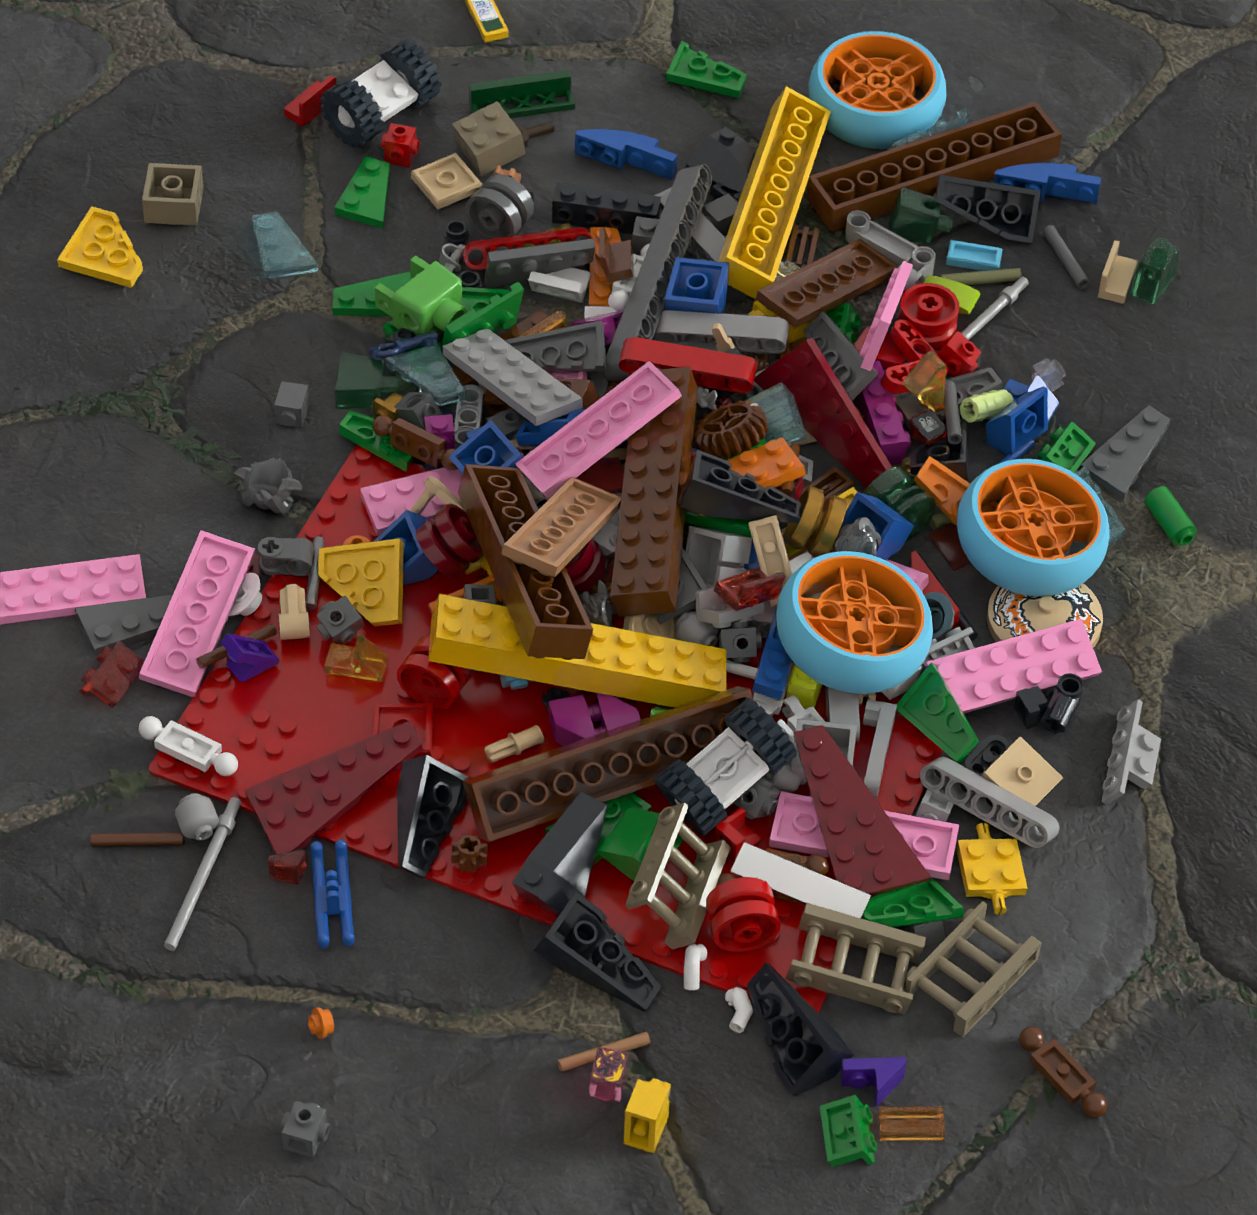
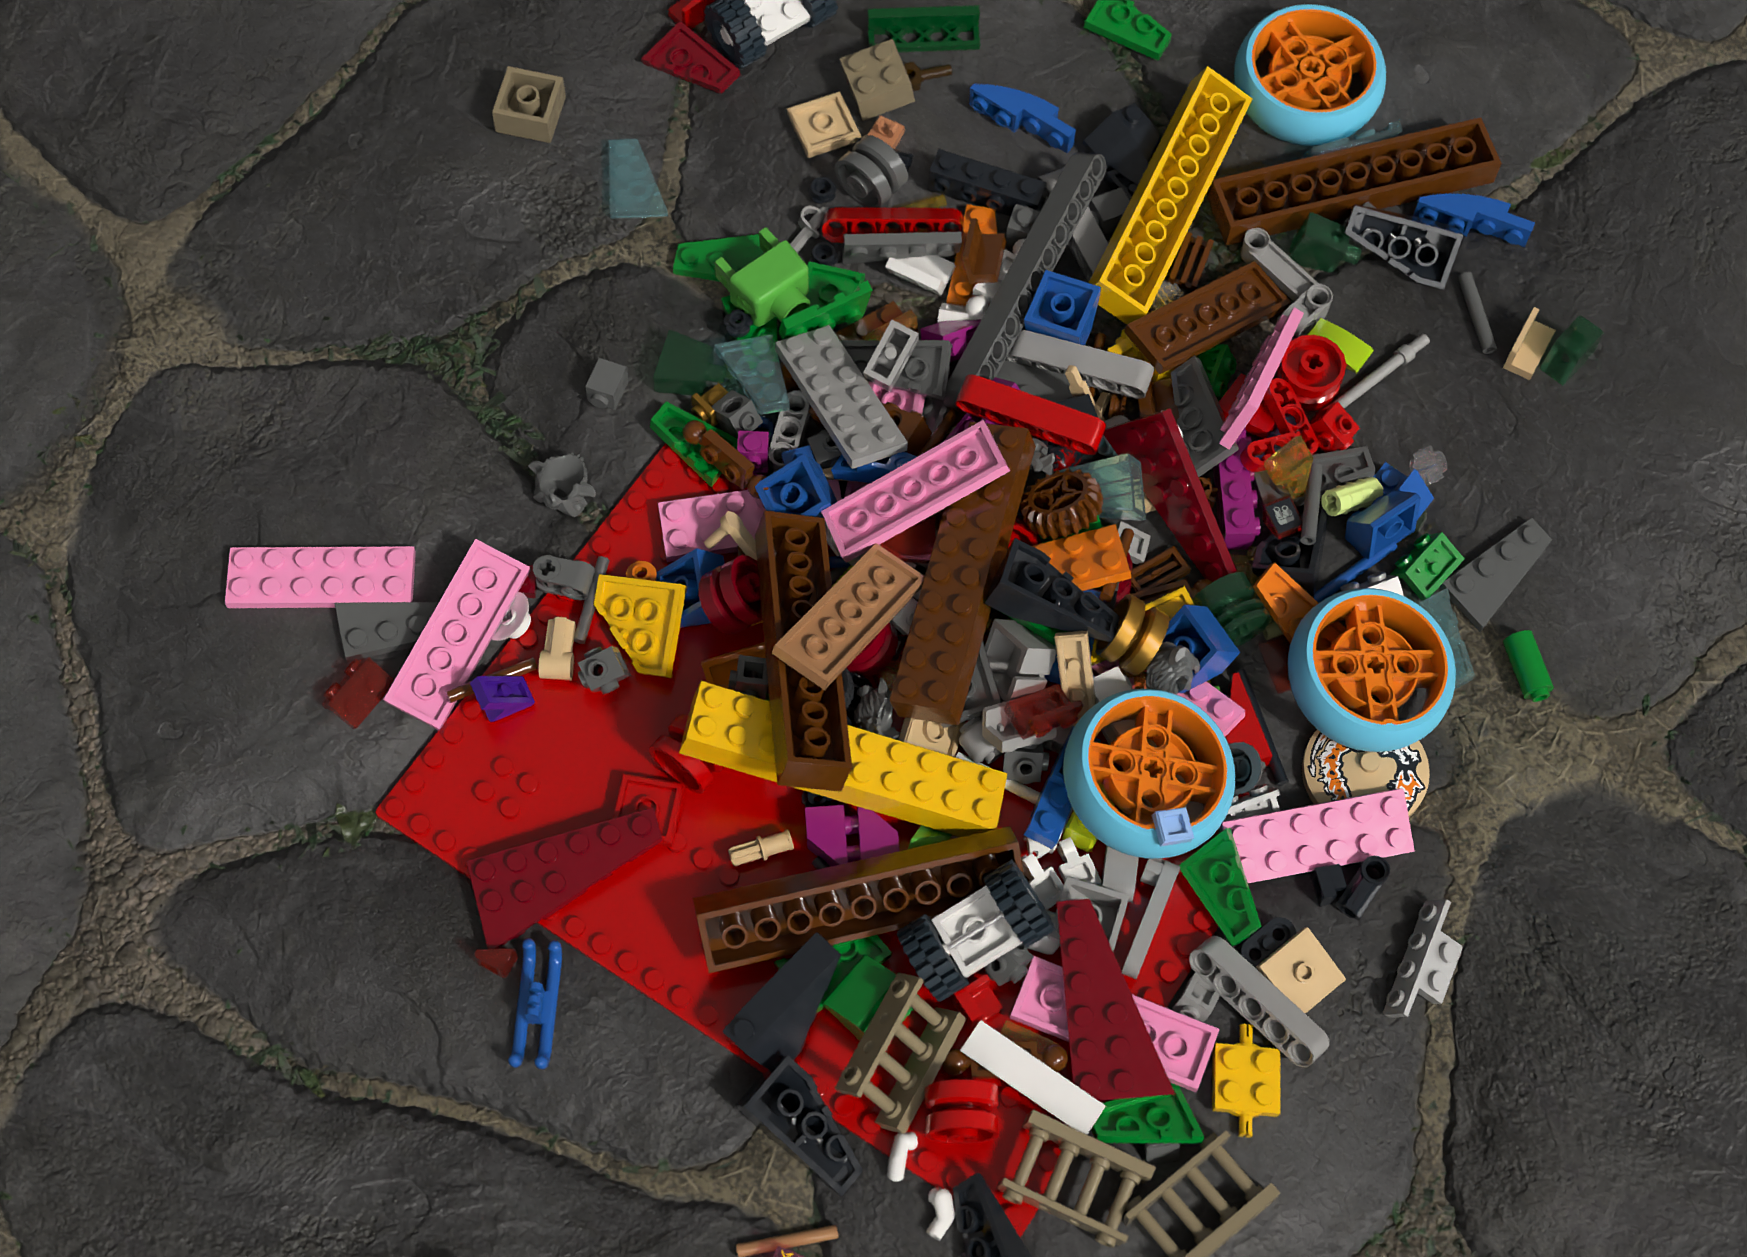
camera: 10 degrees right, 15 degrees up
(102, 250) = (444, 161): yellow plate -> none
(117, 839) = (347, 897): reddish brown bar -> none
(188, 746) = (418, 797): white plate -> none
(196, 817) = (411, 884): light grey head -> none
(224, 828) = (440, 896): light grey bar -> none
(314, 144) = (691, 59): none -> dark red wing
(321, 1022) = (494, 1159): orange plate -> none
(361, 661) = (615, 717): clear yellow slope -> none
(366, 194) = (735, 128): green wing -> none
(399, 346) = (731, 333): dark blue piece -> none
(400, 145) = (781, 74): red brick -> none
(426, 806) = (652, 914): black wedge -> none
(469, 853) = (678, 979): reddish brown gear -> none
(552, 337) = (891, 355): none -> light grey brick
(885, 650) = (1173, 826): none -> light blue tile
(973, 256) = (1376, 298): medium azure tile -> none
(985, 277) = (1378, 326): olive piece -> none

